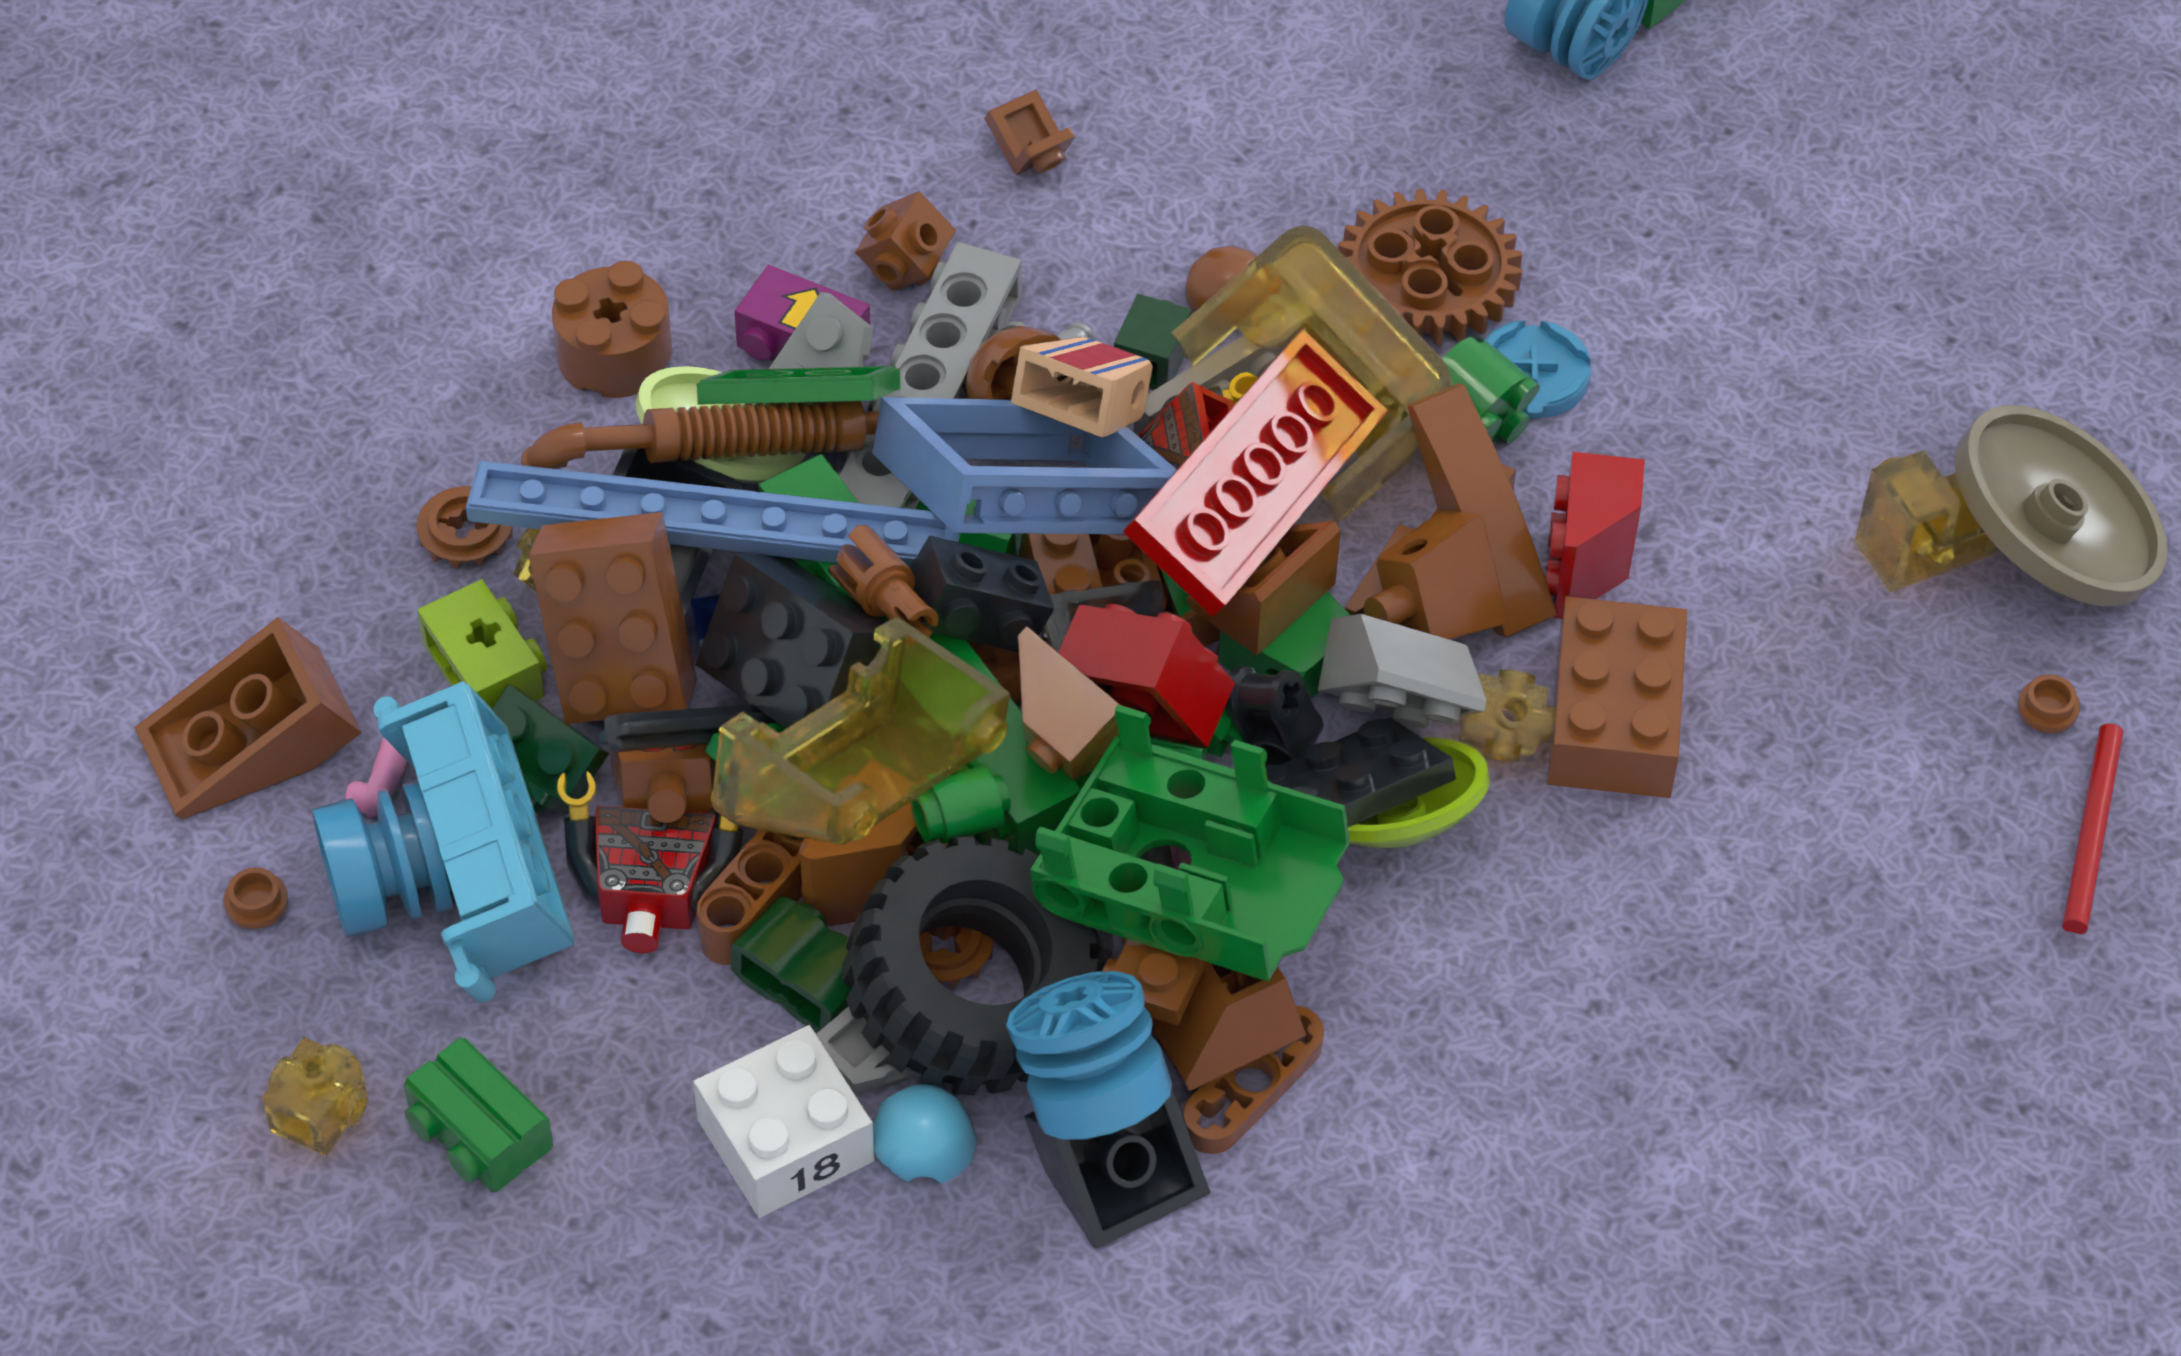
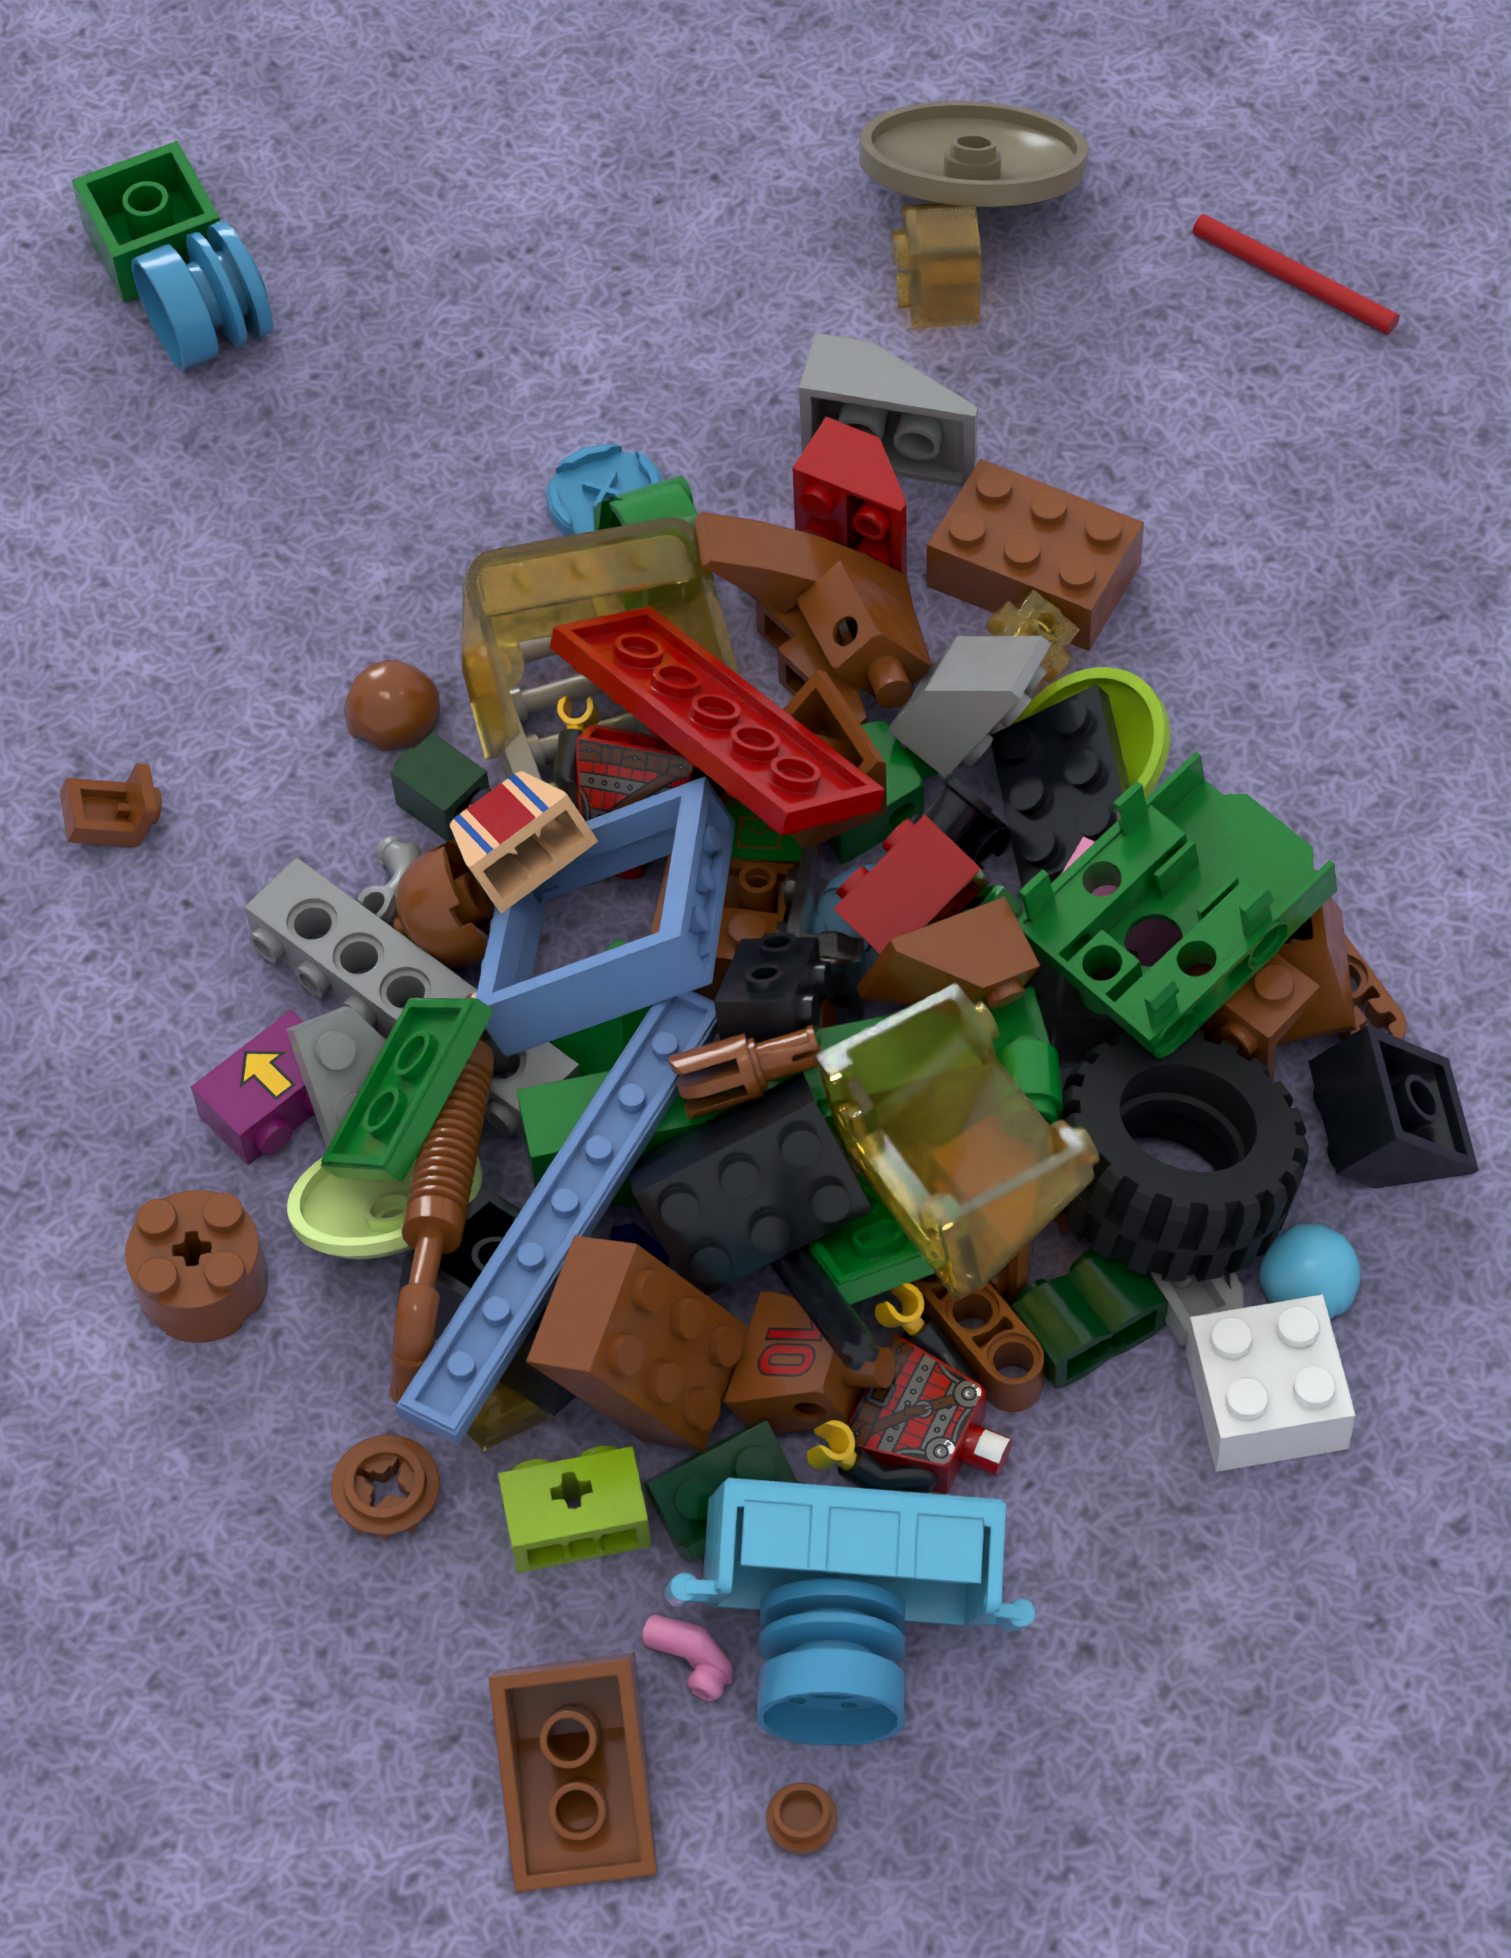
camera: 65 degrees left, 5 degrees up
(315, 1095) = (1093, 1807): clear yellow brick -> none
(476, 1115) = (1163, 1664): green brick -> none
(905, 241) = (208, 958): dark orange brick -> none
(1089, 1055) = (1354, 1067): dark azure wheel -> none
(1436, 262) = (444, 519): dark orange gear -> none
(1700, 512) = (920, 422): none -> light grey slope
(2049, 704) = (1157, 253): dark orange plate -> none

